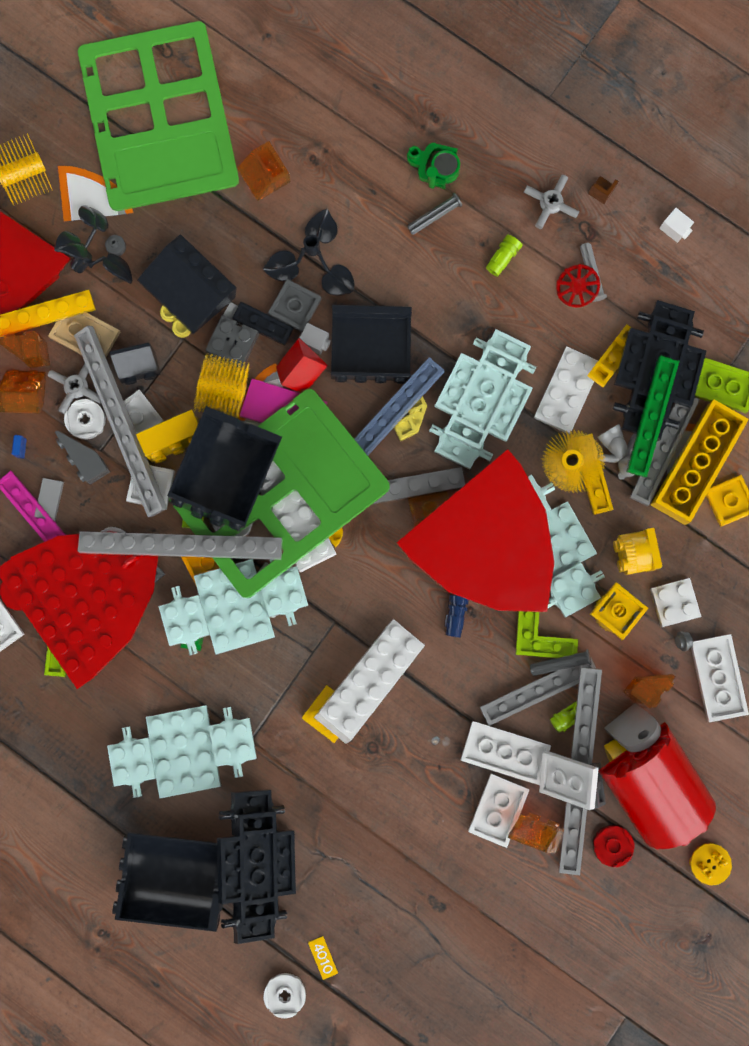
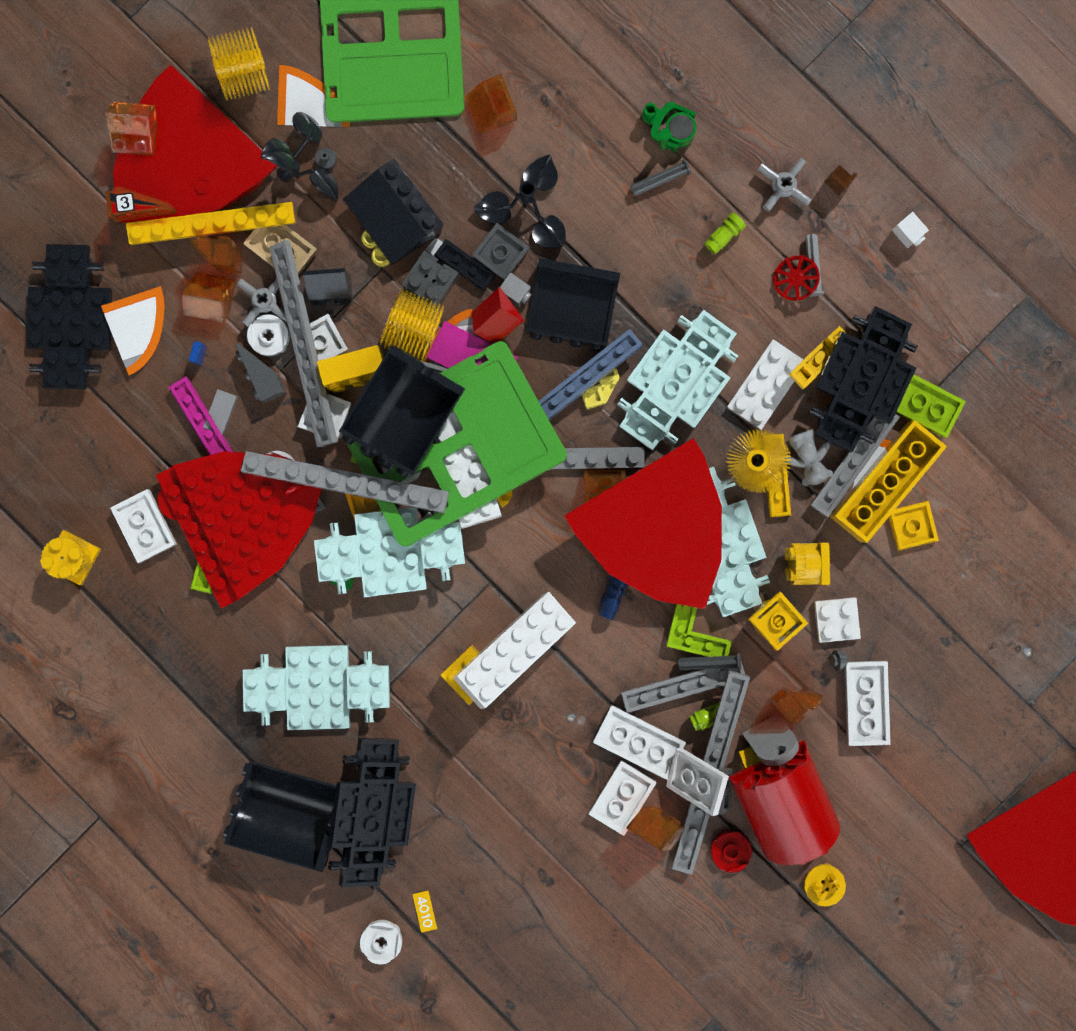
camera: 15 degrees right, 5 degrees up
(652, 416) = (848, 427): green tile -> none

